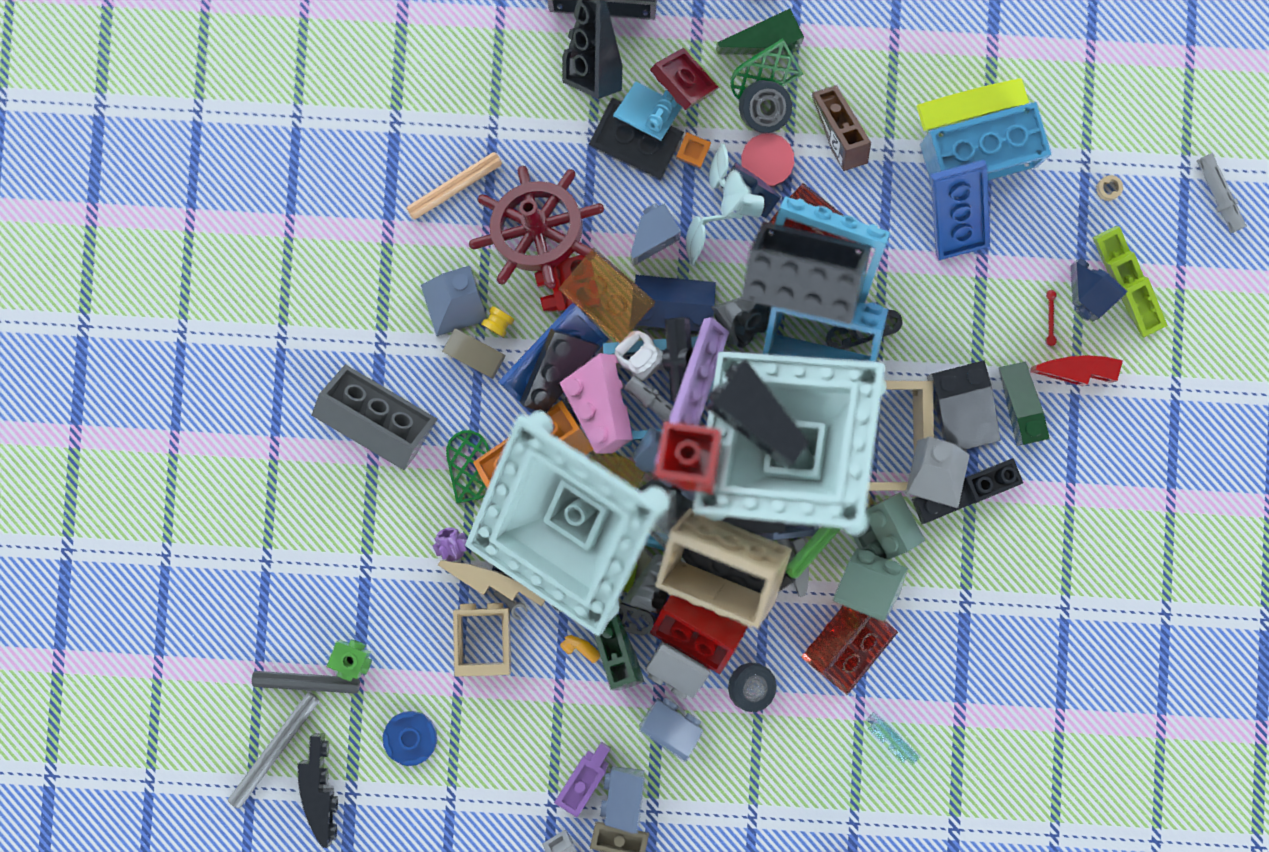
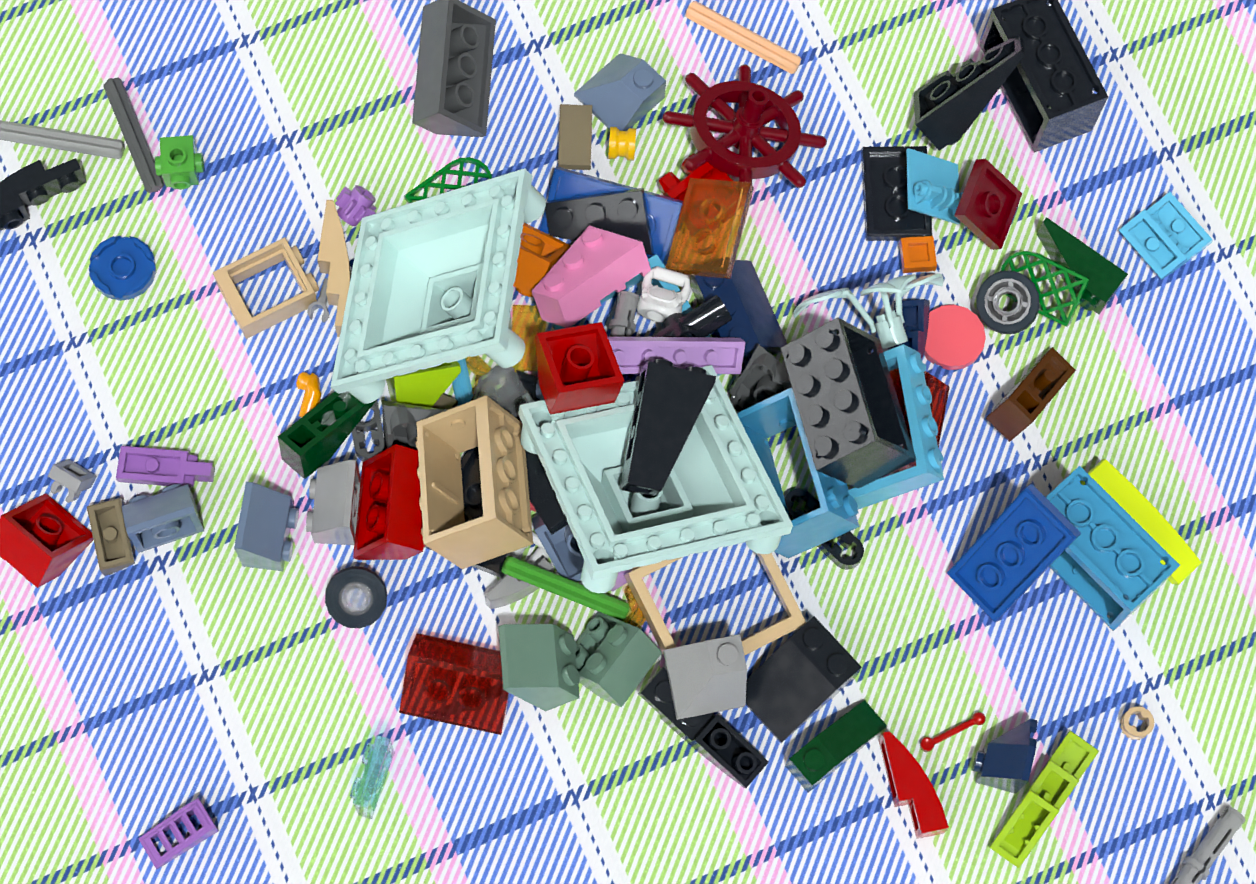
camera: 55 degrees right, 15 degrees down
(654, 233) = (801, 248): sand blue slope -> none

